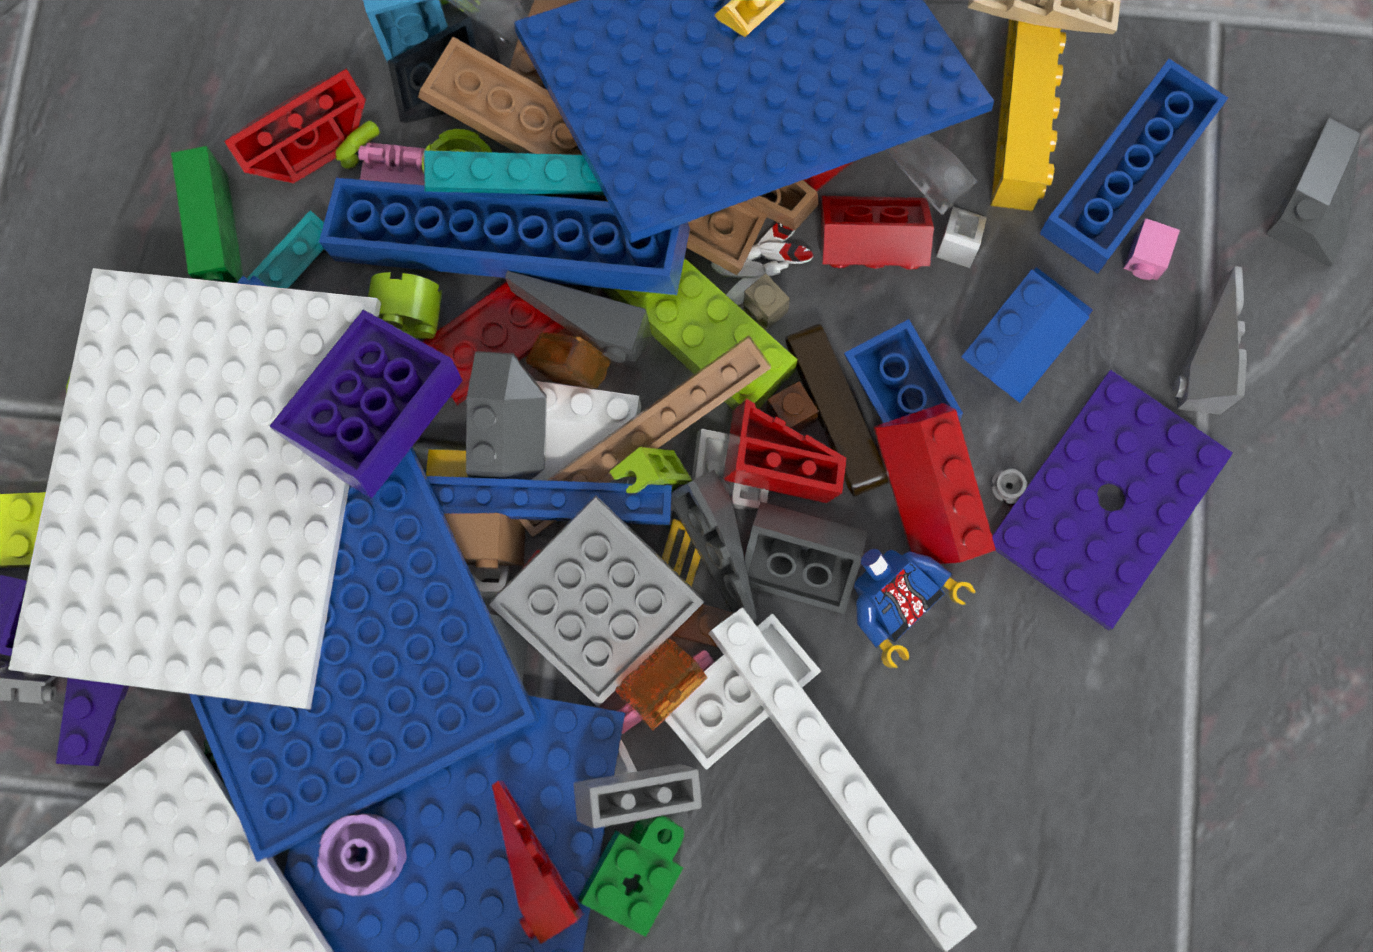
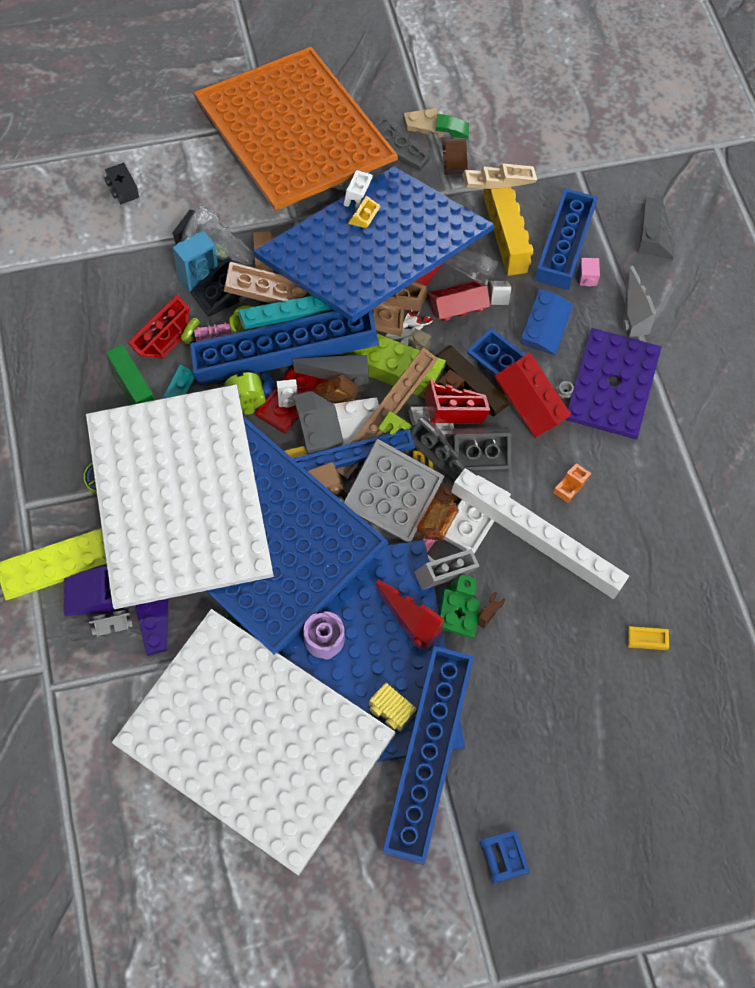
camera: 25 degrees left, 15 degrees down
(368, 402) = (252, 427): dark purple slope -> none
(459, 299) = (269, 384): none -> blue arm
(473, 335) = (286, 390): none -> white plate
(686, 899) = (487, 613): none -> reddish brown plate
(897, 594) = (533, 448): blue torso -> none
(948, 683) = (572, 483): none -> orange slope

